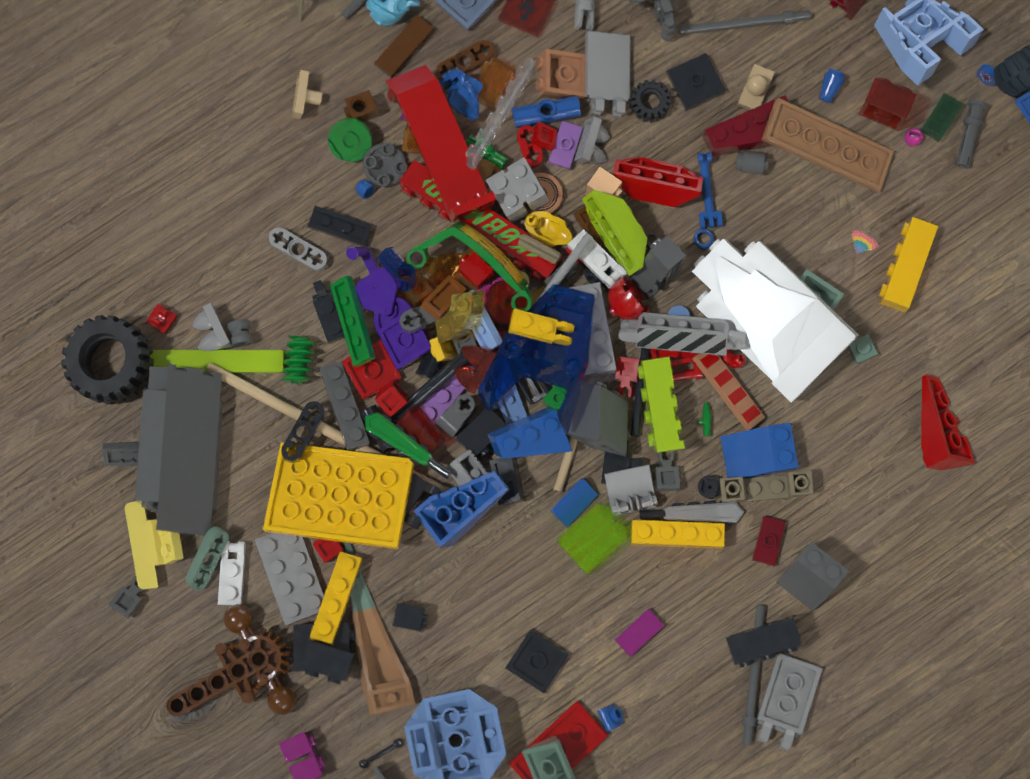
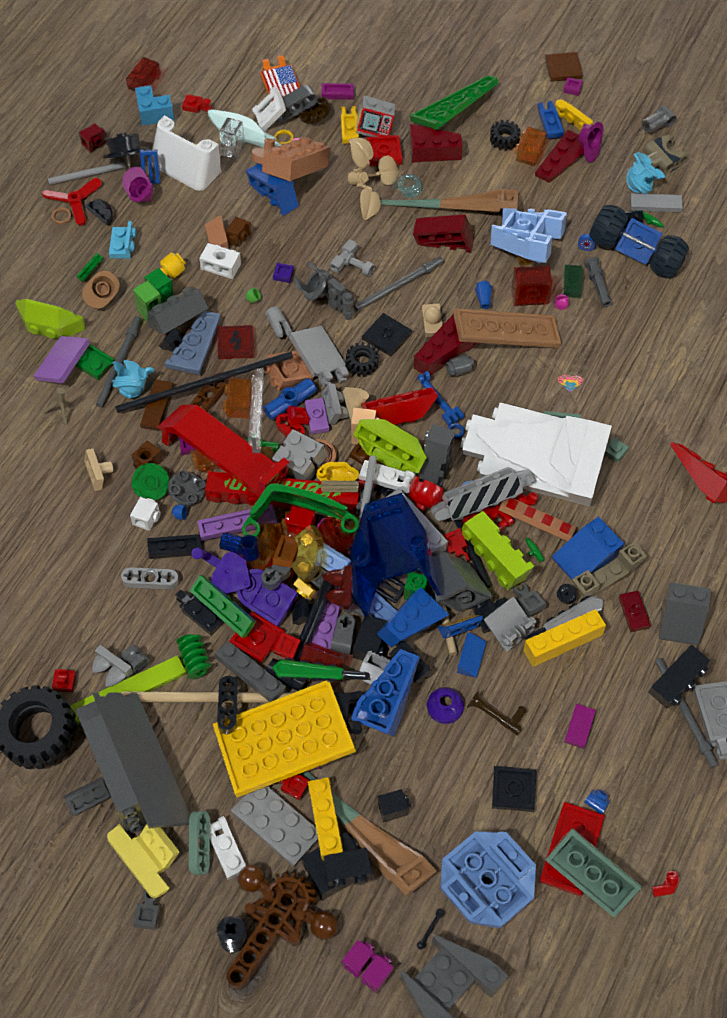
camera: 30 degrees left, 20 degrees down
(198, 671) = (232, 934): none -> black piece
(328, 173) = (145, 513): none -> white brick
(411, 230) = (232, 523): none -> medium lavender plate
(462, 89) = (224, 403): blue piece -> none
(467, 48) = (203, 382): none -> black piece
(514, 552) = (441, 713): none -> dark purple piece
(539, 327) = (375, 533): yellow hinge -> none
(570, 594) = (506, 722): none -> dark brown piece
(579, 464) = (460, 626): none -> blue slope
(593, 538) = (502, 673): clear neon green brick -> none
(614, 148) = (354, 398): none -> tan tile
(908, 265) = (611, 380): yellow brick -> none

